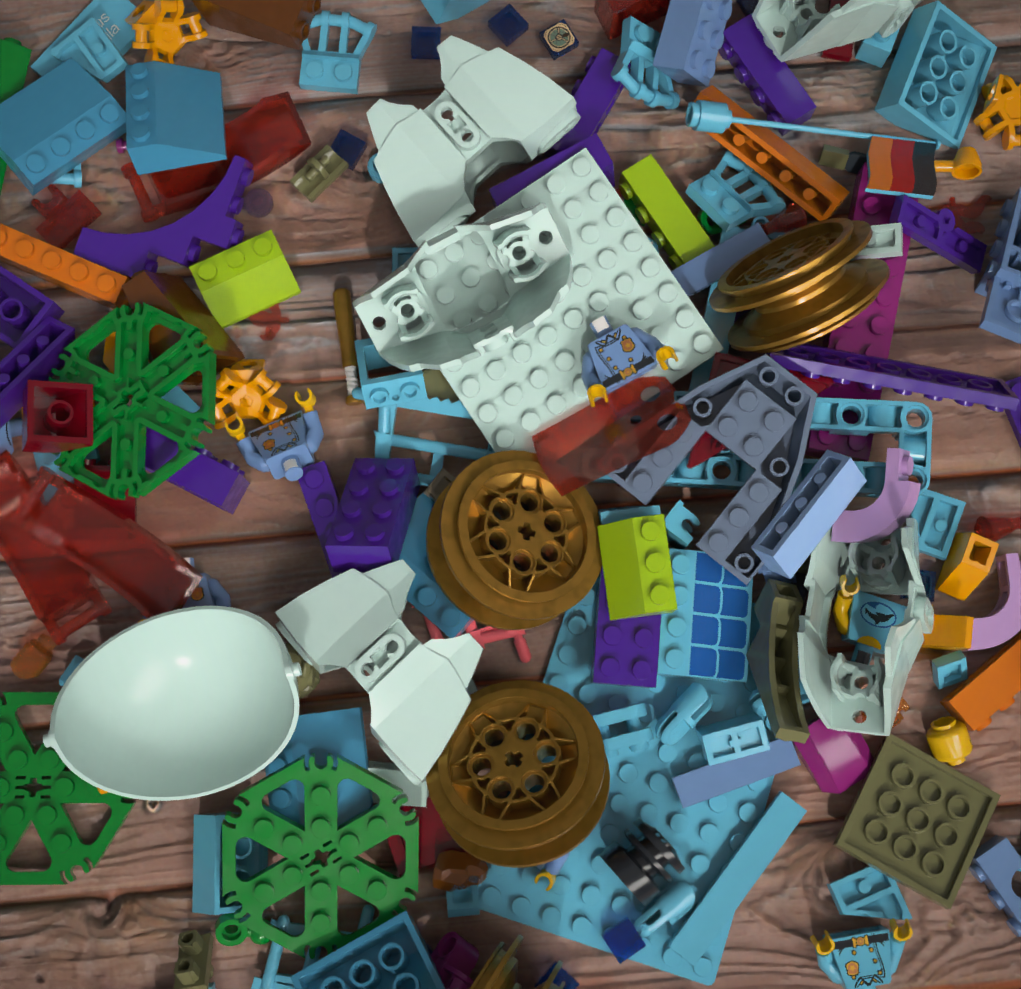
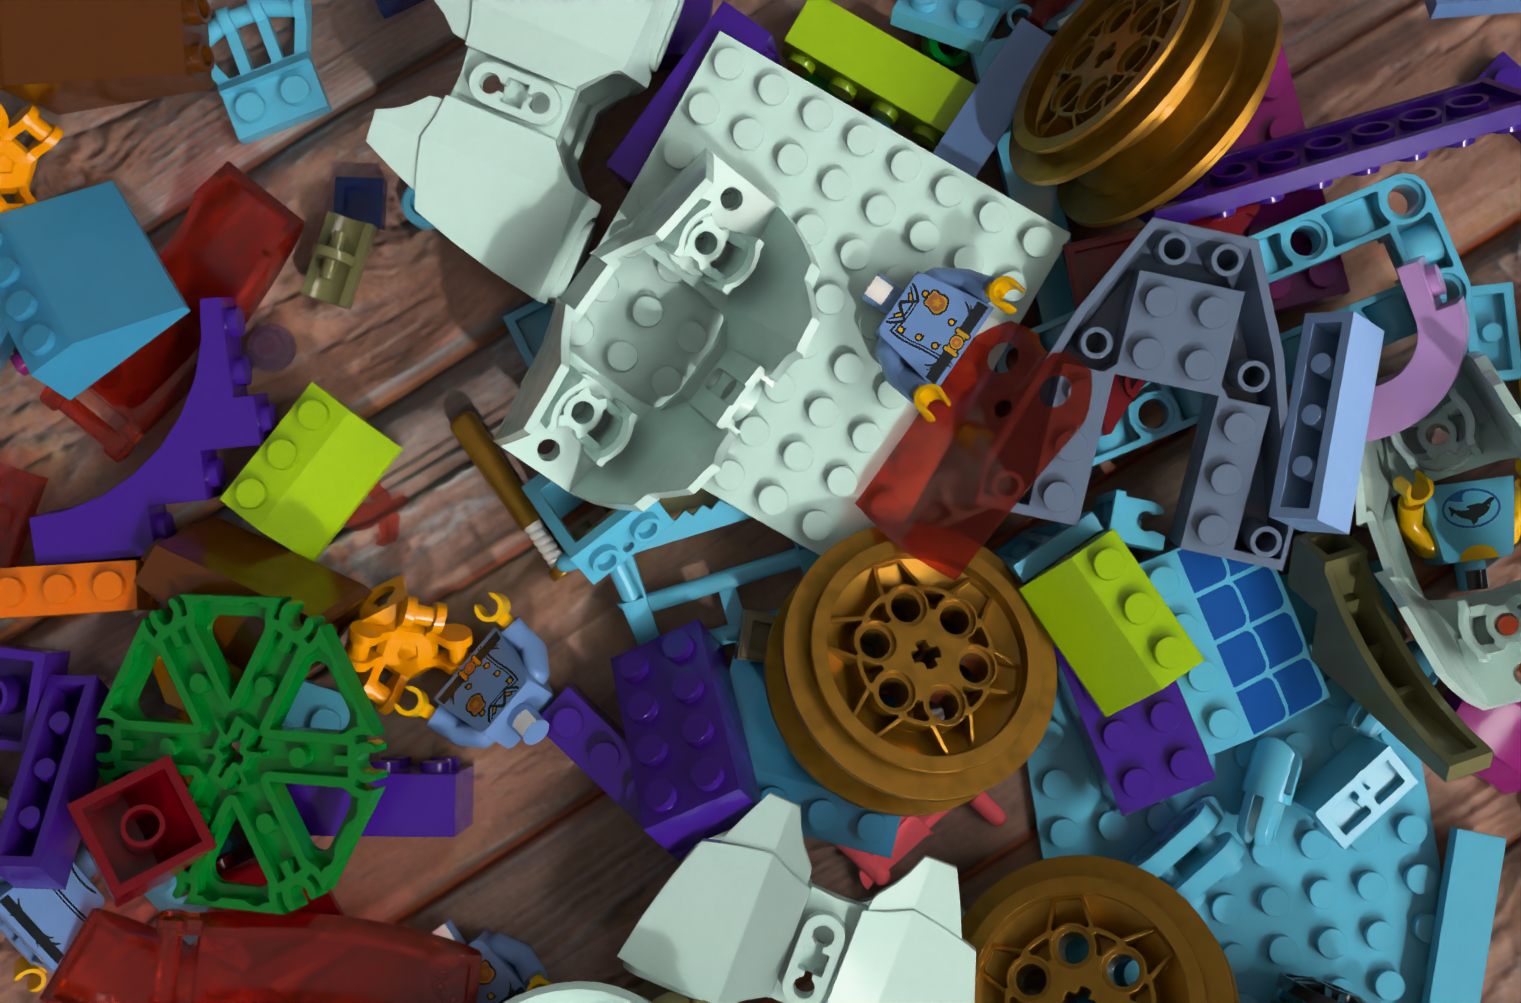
camera: 25 degrees left, 5 degrees up
(721, 778) = (1341, 875): medium blue tile -> none

